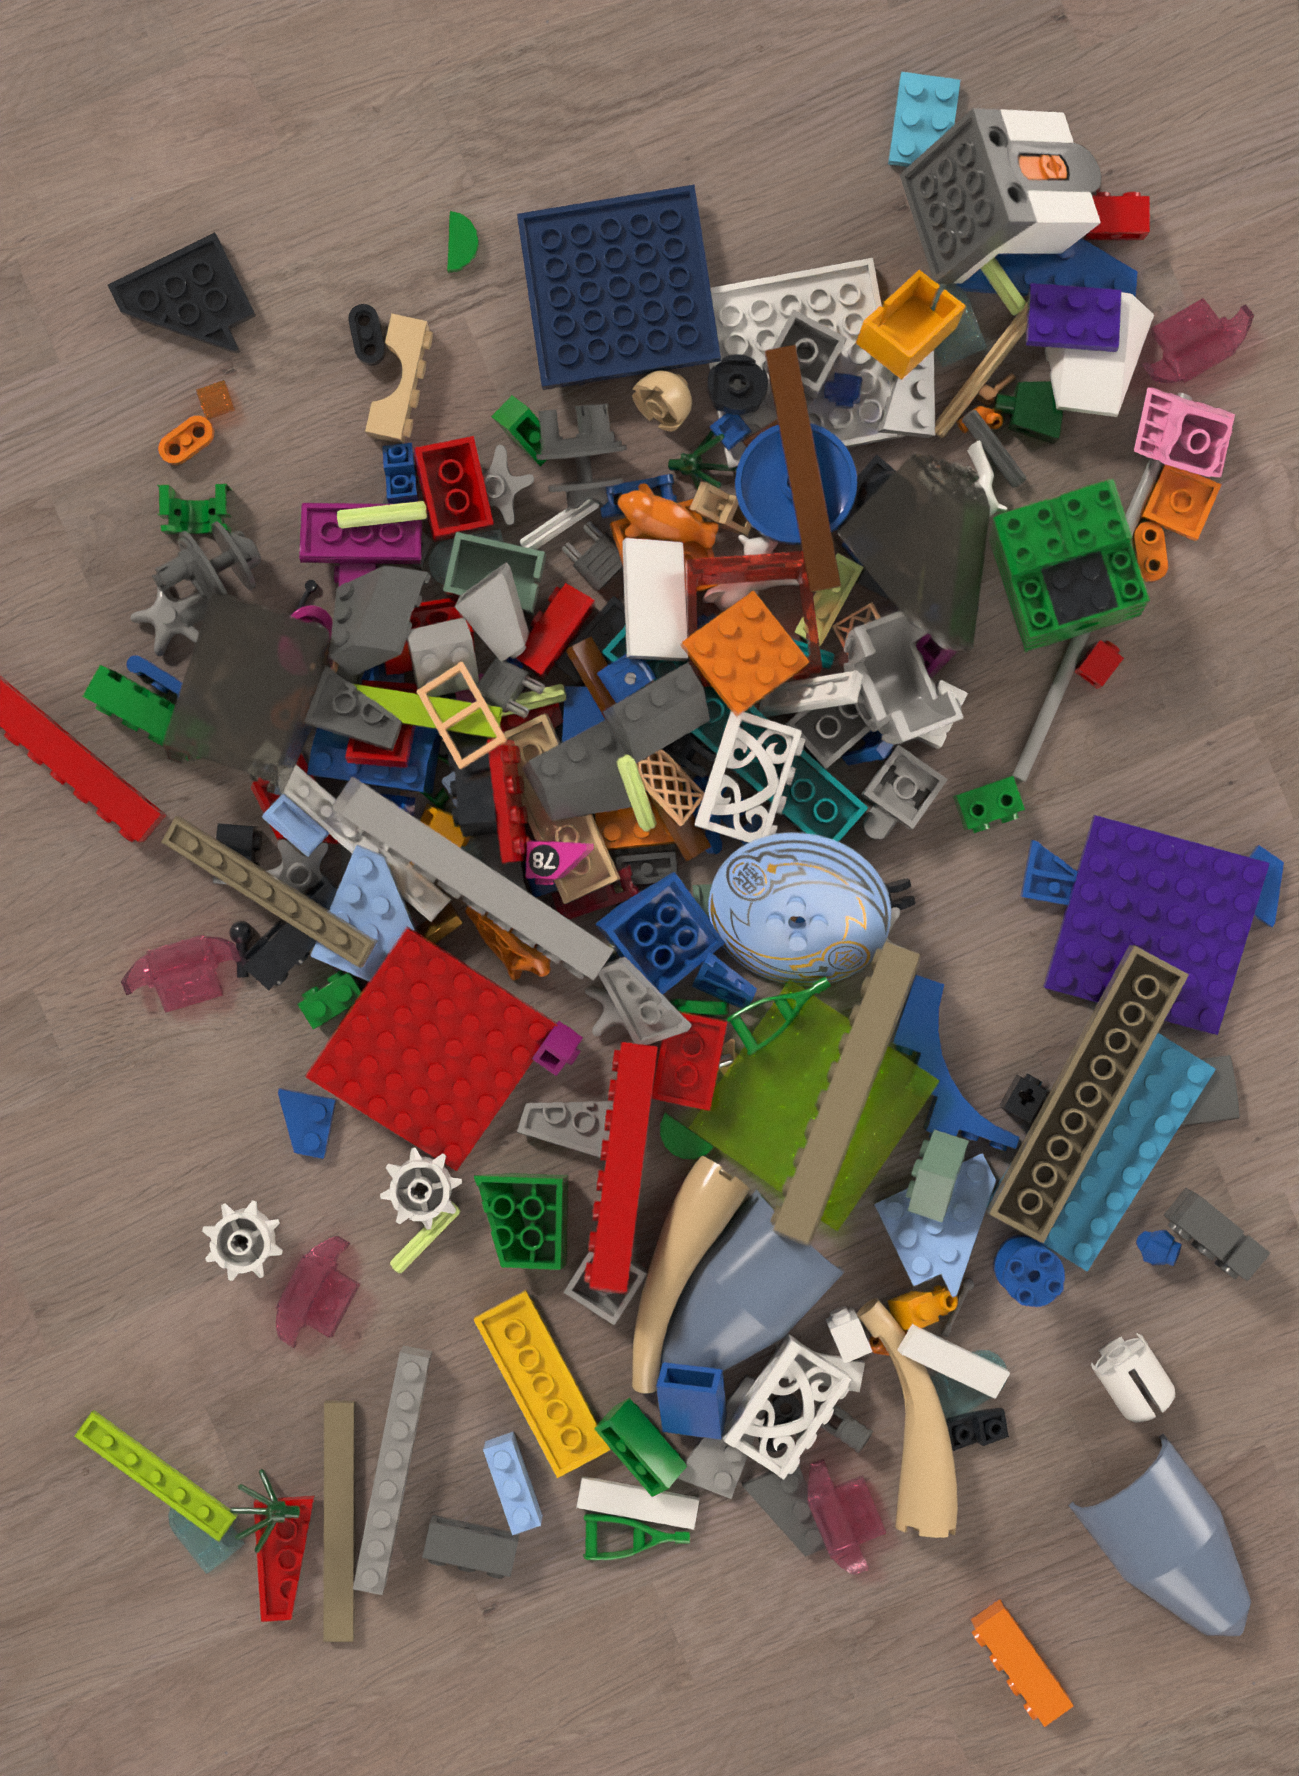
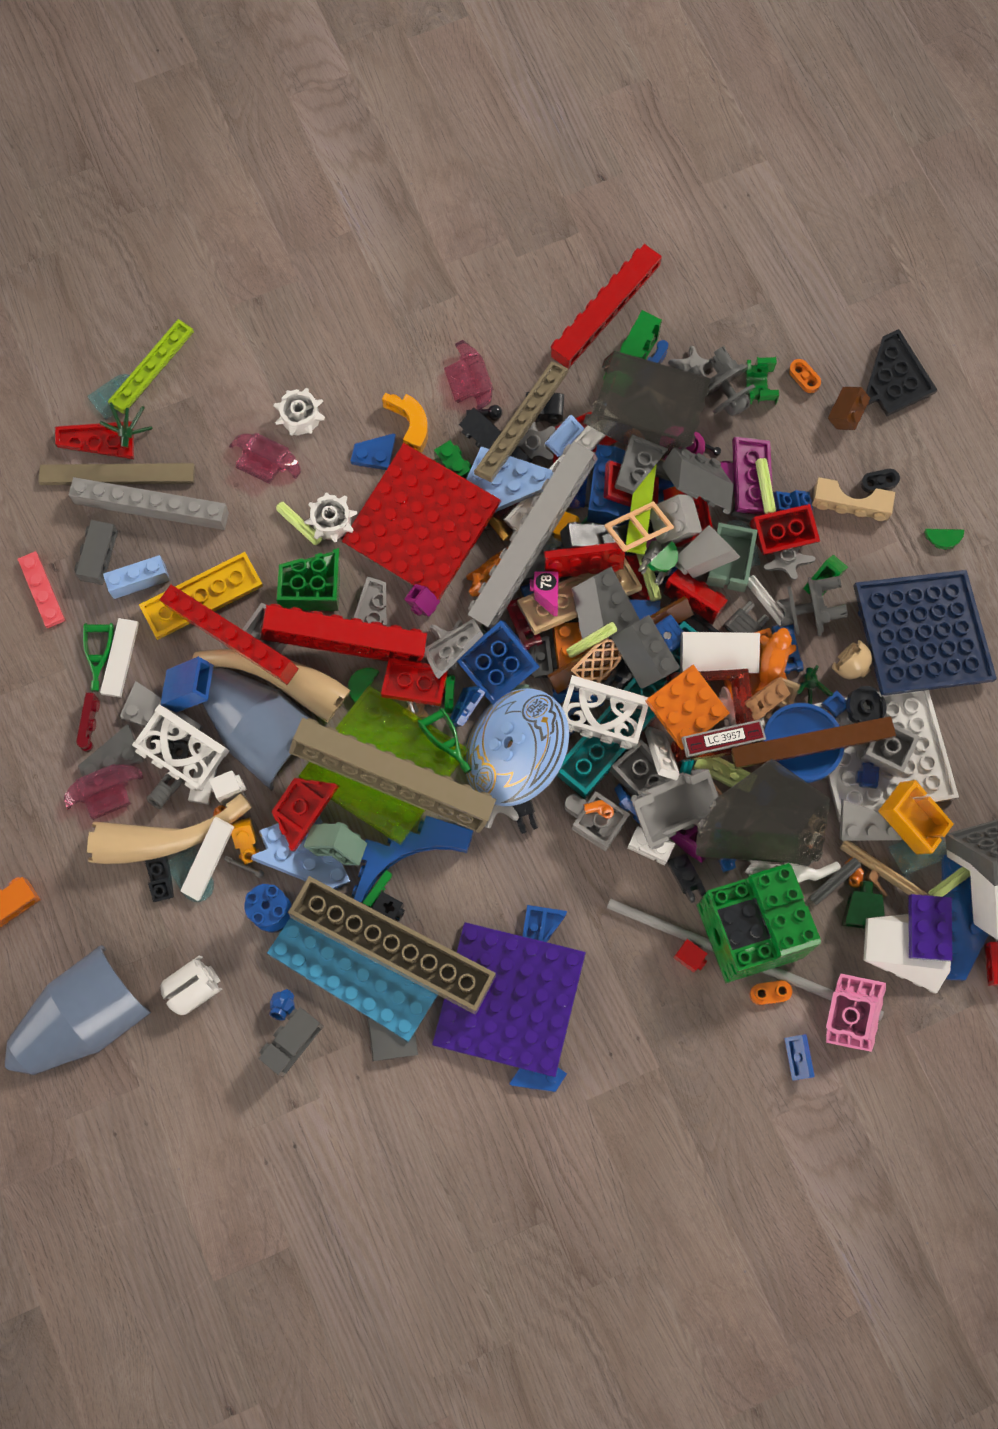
camera: 85 degrees right, 15 degrees down
(215, 399) = (830, 392): clear orange tile -> none
(246, 374) = (849, 408): none -> reddish brown brick
(274, 1053) = (410, 409): none -> light orange arch
(507, 676) = (665, 559): none -> tile
(527, 1626) = (41, 589): none -> coral plate
(621, 1341) = (229, 634): none -> red brick
(640, 1447) = (157, 656): green brick -> none
(730, 532) = (767, 698): none -> medium nougat plate
(740, 1545) = (87, 722): none -> dark red plate
(797, 602) = (723, 738): none -> tile
(885, 1226) = (301, 808): none -> red wing
(891, 786) = (600, 807): none -> orange arm
(987, 664) = (686, 876): none -> black hinge
(989, 803) = (590, 880): green brick -> none
(999, 1113) = (380, 886): none -> green tile
(1181, 501) = (807, 1013): orange plate -> none
(1196, 341) = (919, 1021): clear pink plate -> none
(1243, 516) = (799, 1057): none -> plate

